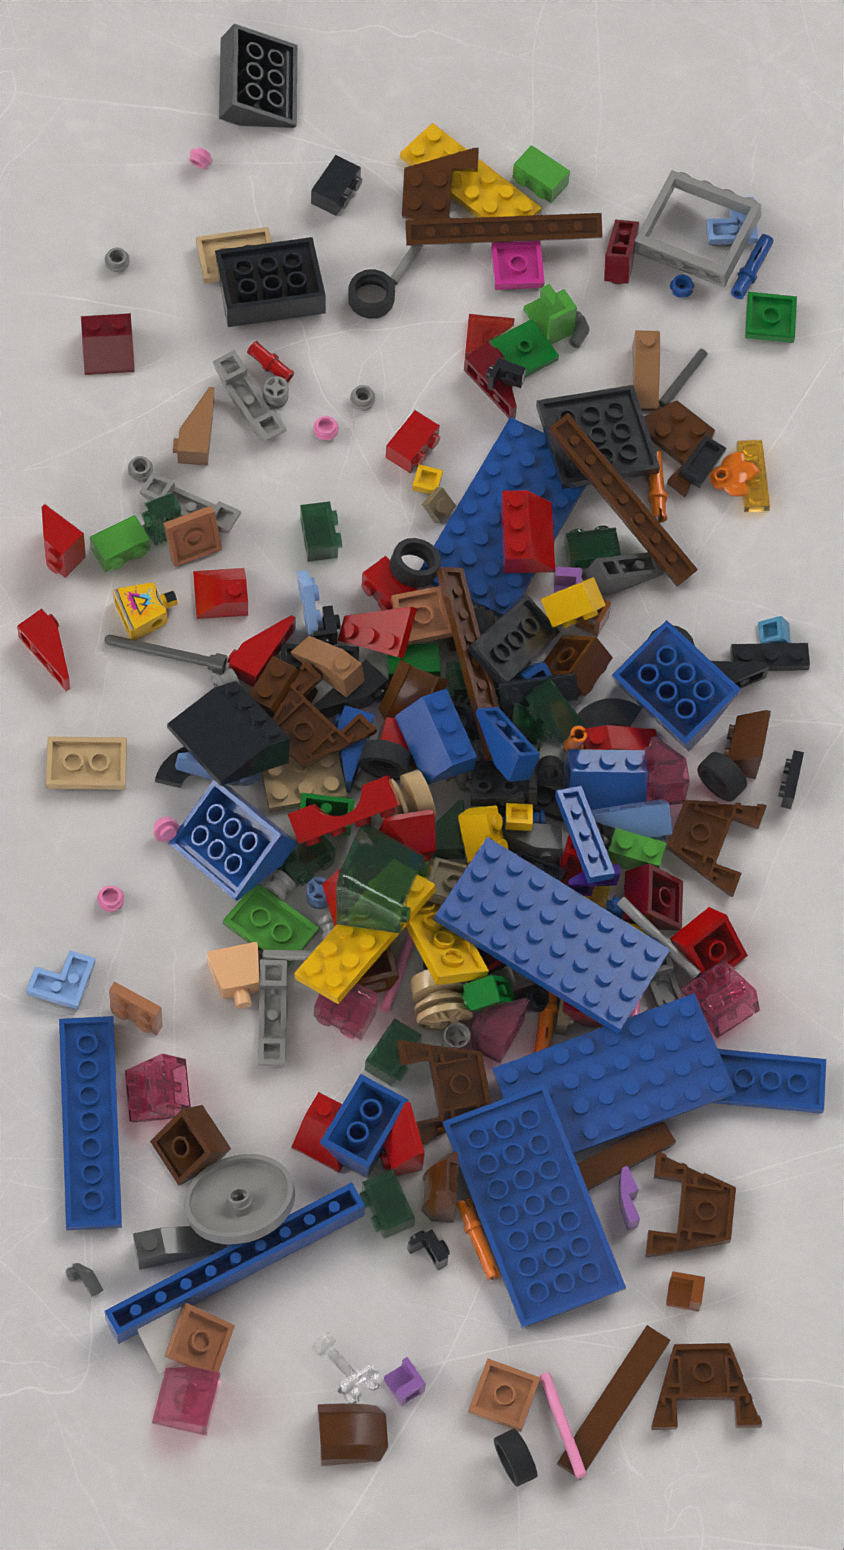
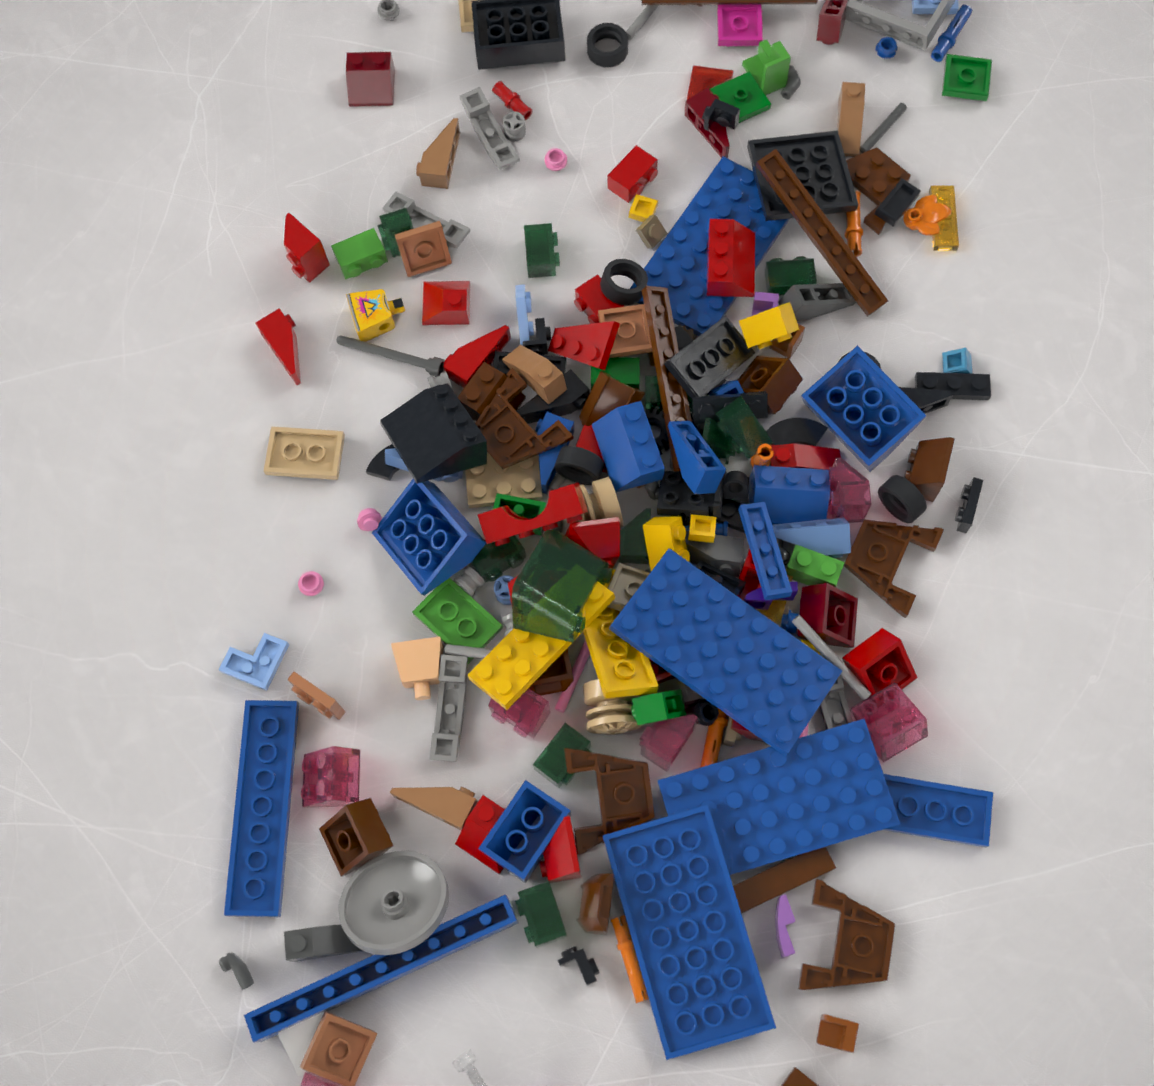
camera: 15 degrees right, 5 degrees up
(140, 462) = (386, 183): light grey plate -> none
(273, 1106) = (440, 802): none -> medium nougat slope
(362, 391) = (591, 129): light grey plate -> none
(456, 1033) = (622, 743): light grey wheel -> none

